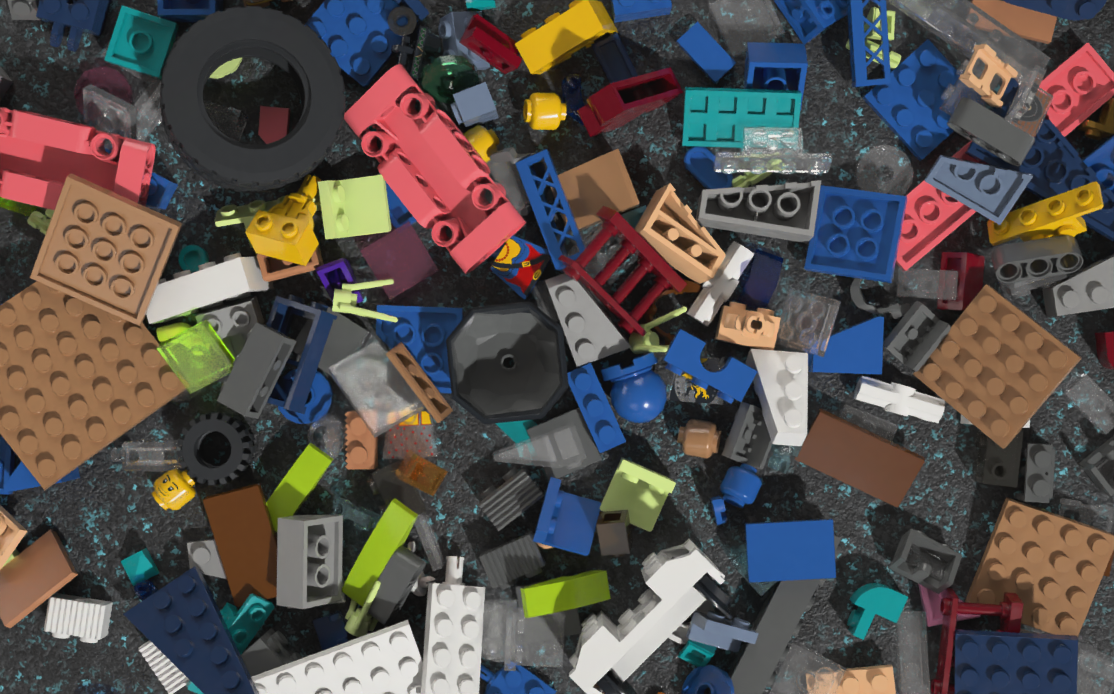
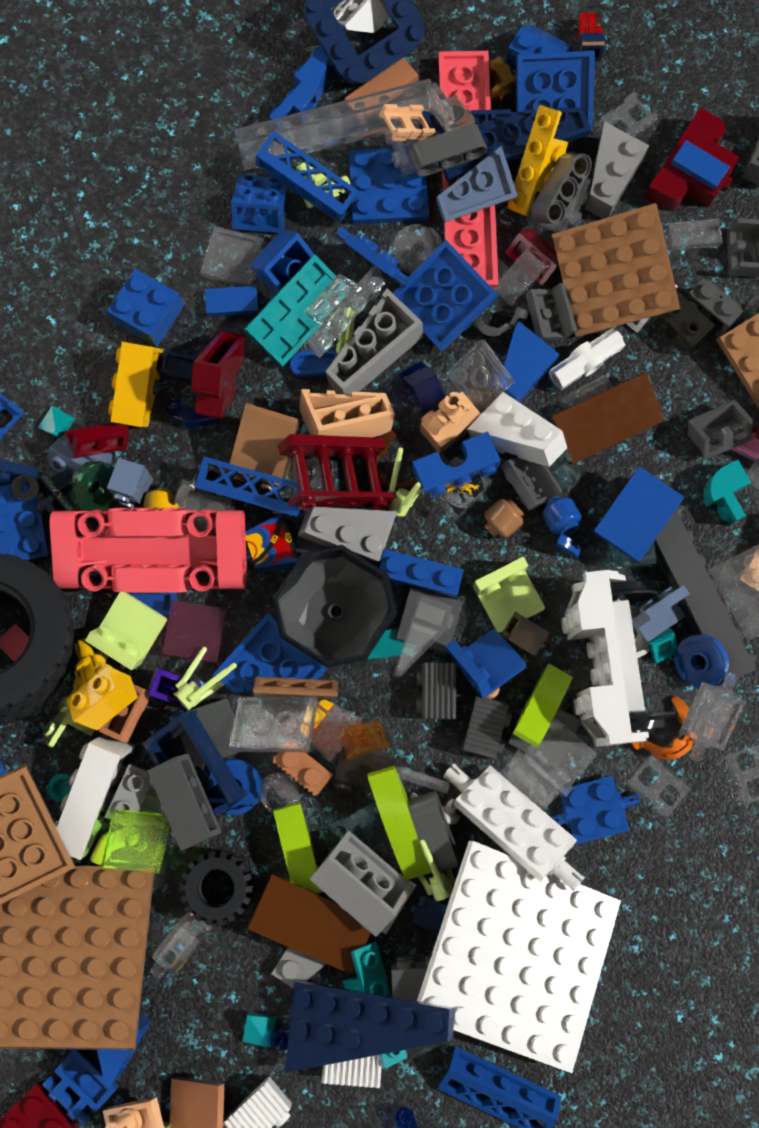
camera: 55 degrees left, 10 degrees down
(174, 489) = (221, 948): yellow head -> none
(544, 111) = (176, 441): yellow head -> none
(636, 390) = (432, 532): blue tile -> none
(722, 285) = (405, 417): white piece -> none
(842, 136) = (381, 259): none -> blue plate

